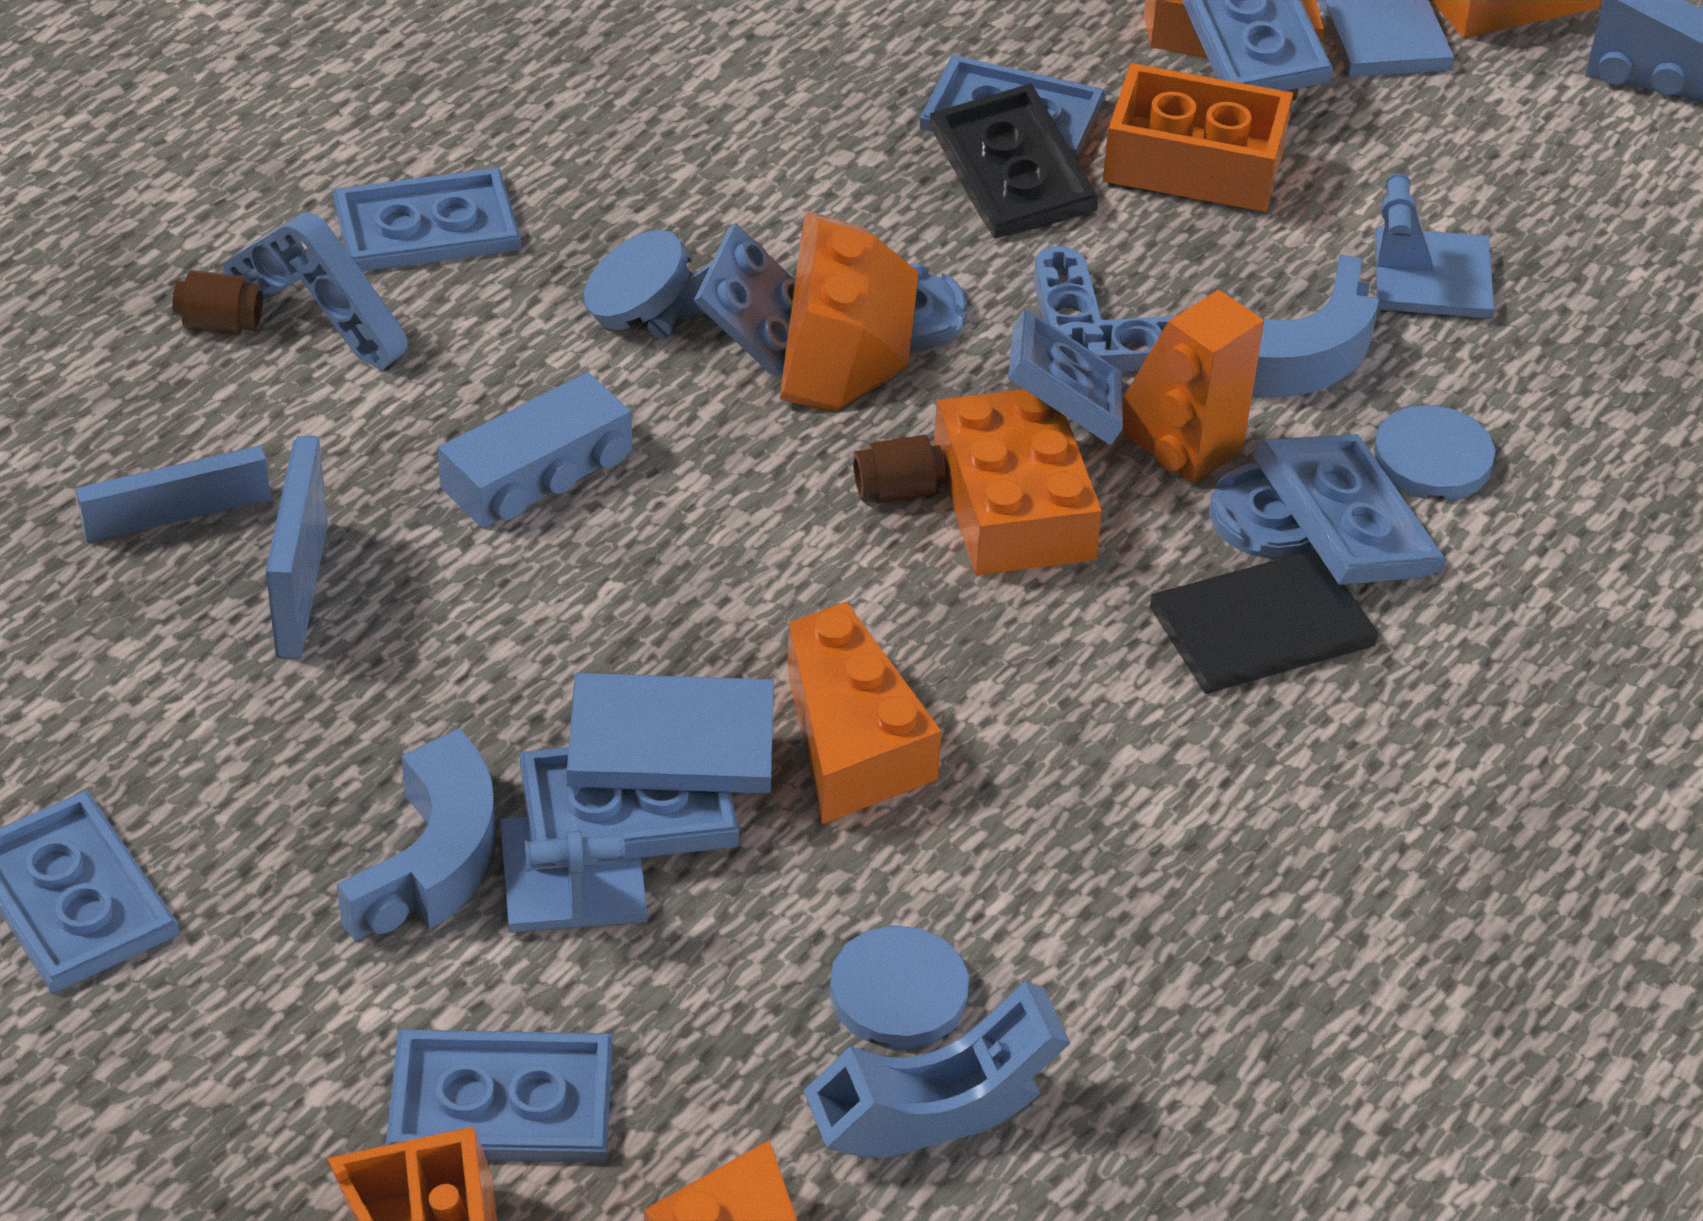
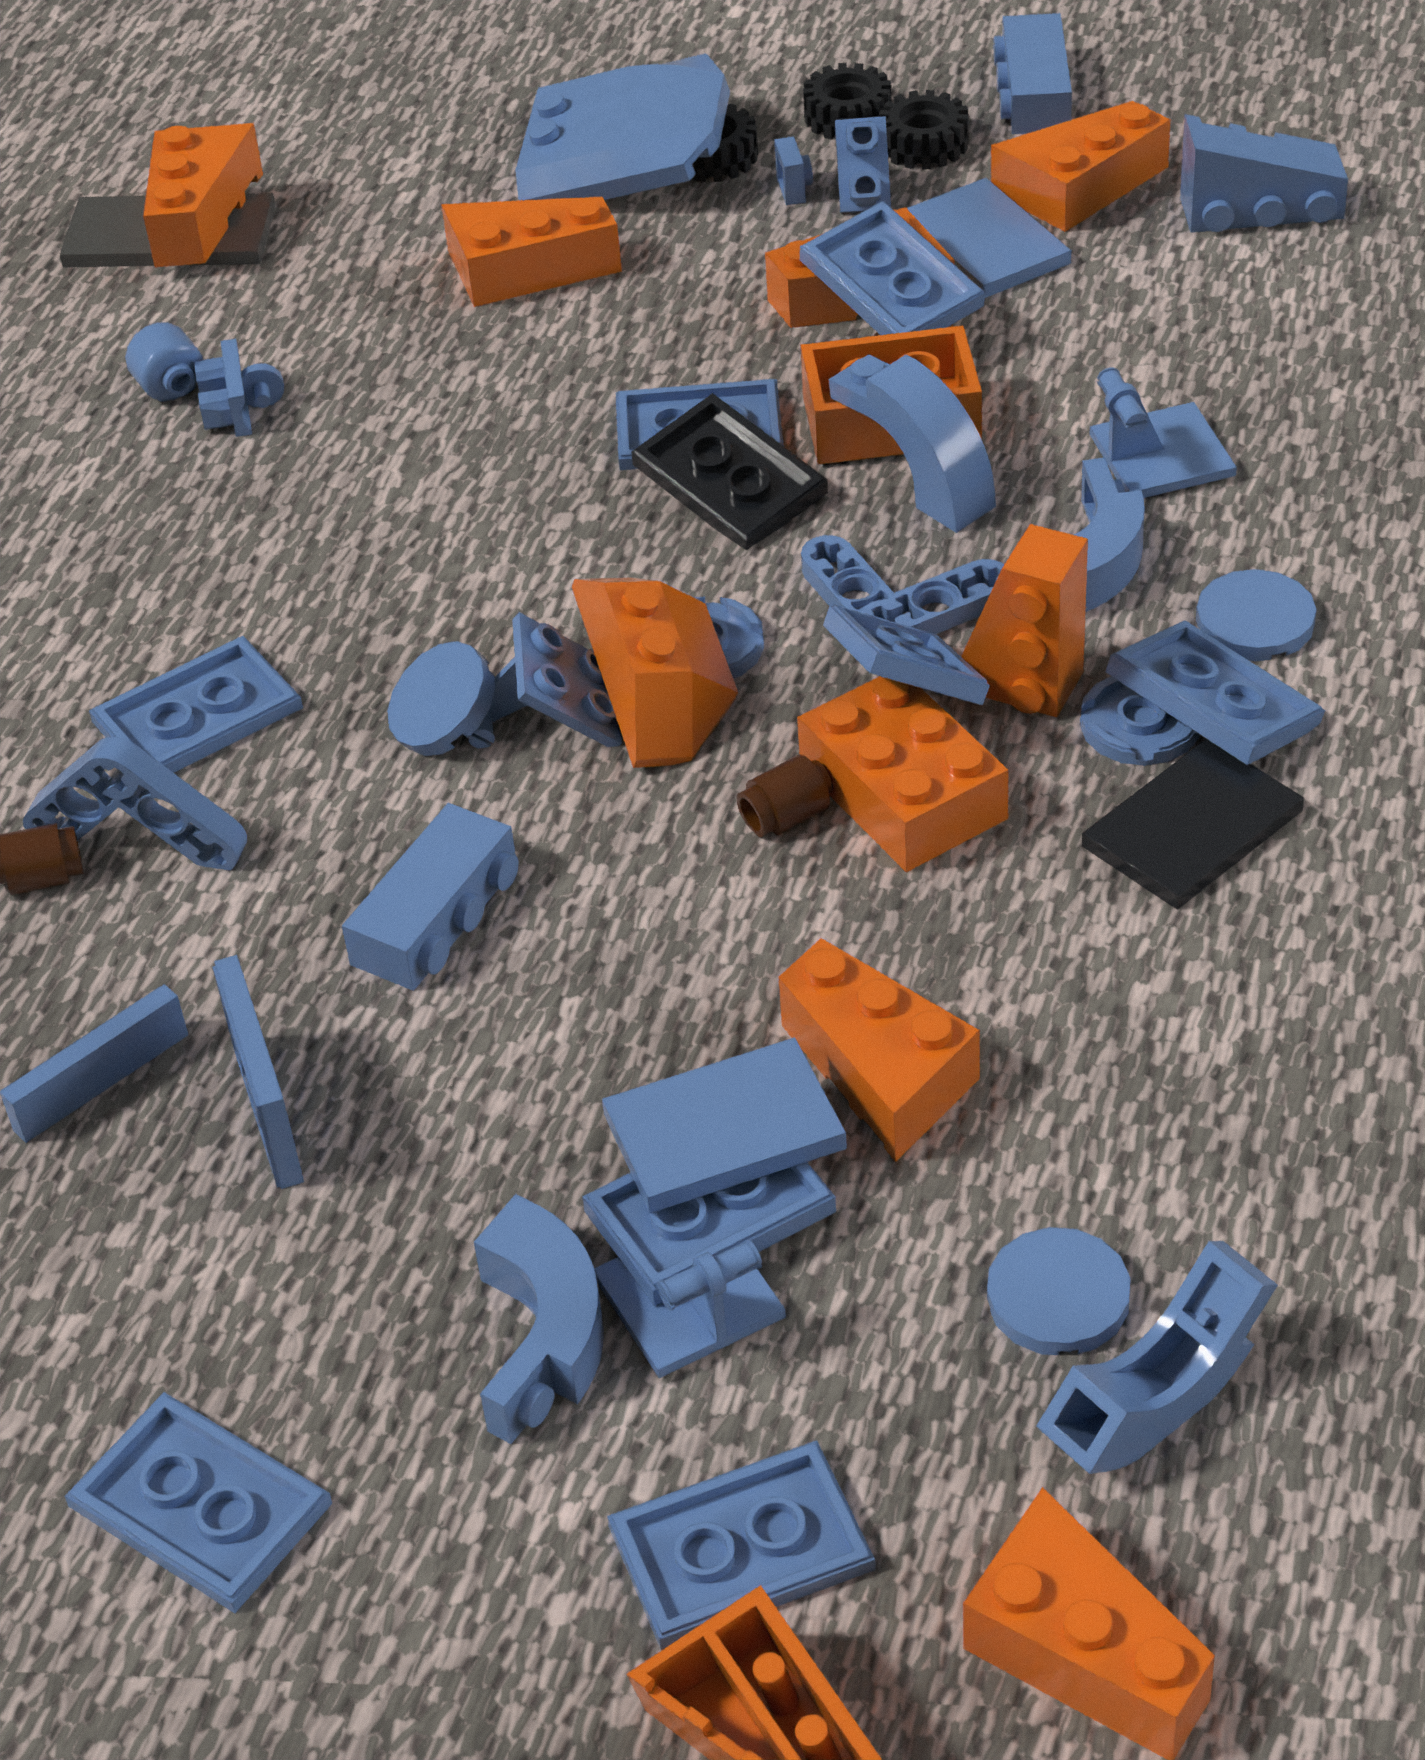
camera: 15 degrees left, 0 degrees up
(1205, 183) = (932, 430): none -> medium blue arch

